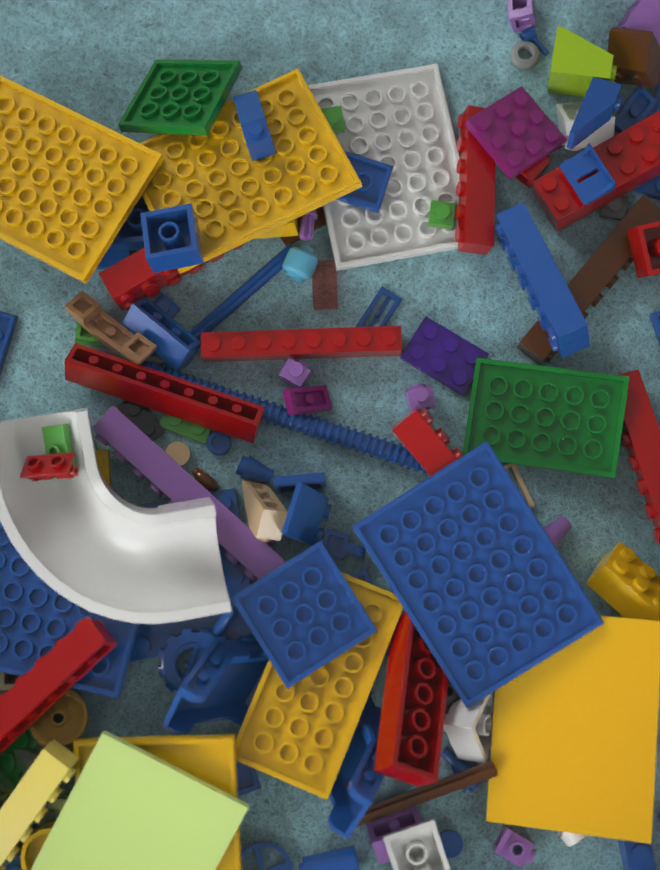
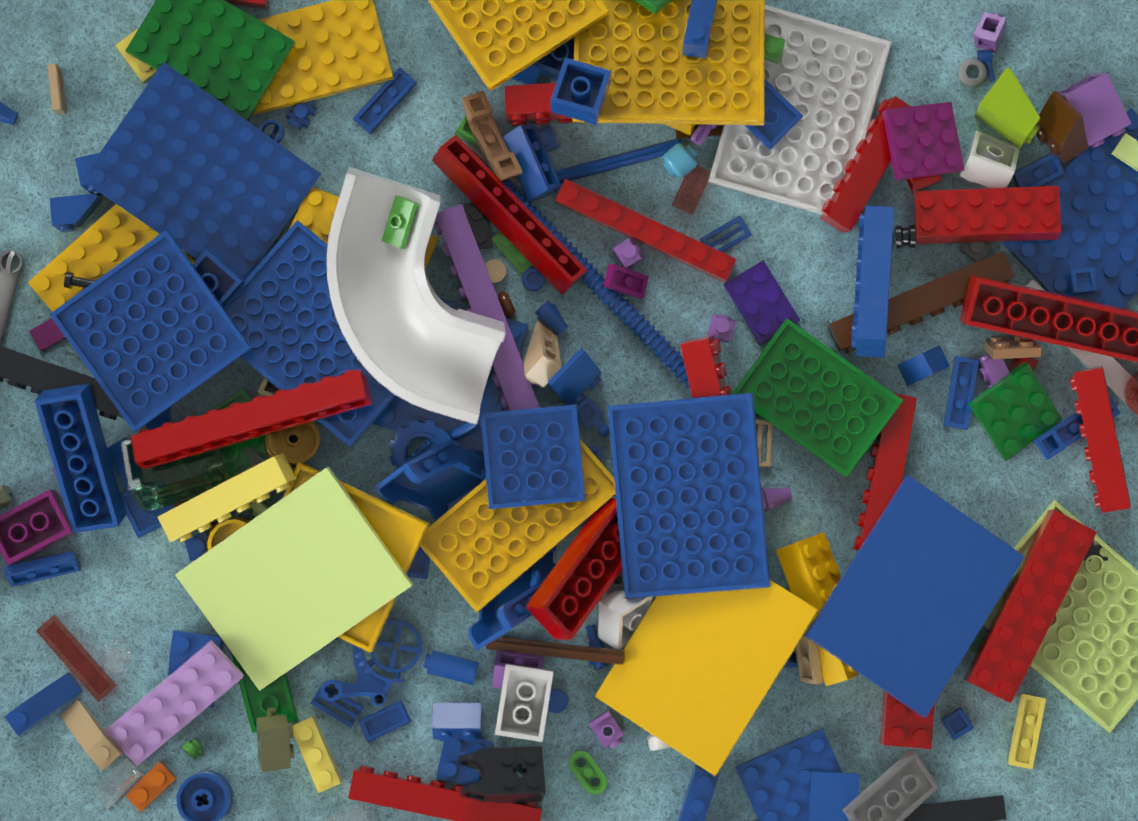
camera: 25 degrees right, 5 degrees up
(47, 466) = (385, 230): red hinge -> none
(289, 483) = (574, 344): blue tile -> none
(441, 214) = (822, 179): bright green plate -> none
(547, 227) = (905, 236): none -> black wheel
(582, 165) = (960, 200): blue piece -> none
(595, 109) = (999, 158): blue slope -> none
(625, 338) = (923, 365): none -> blue slope

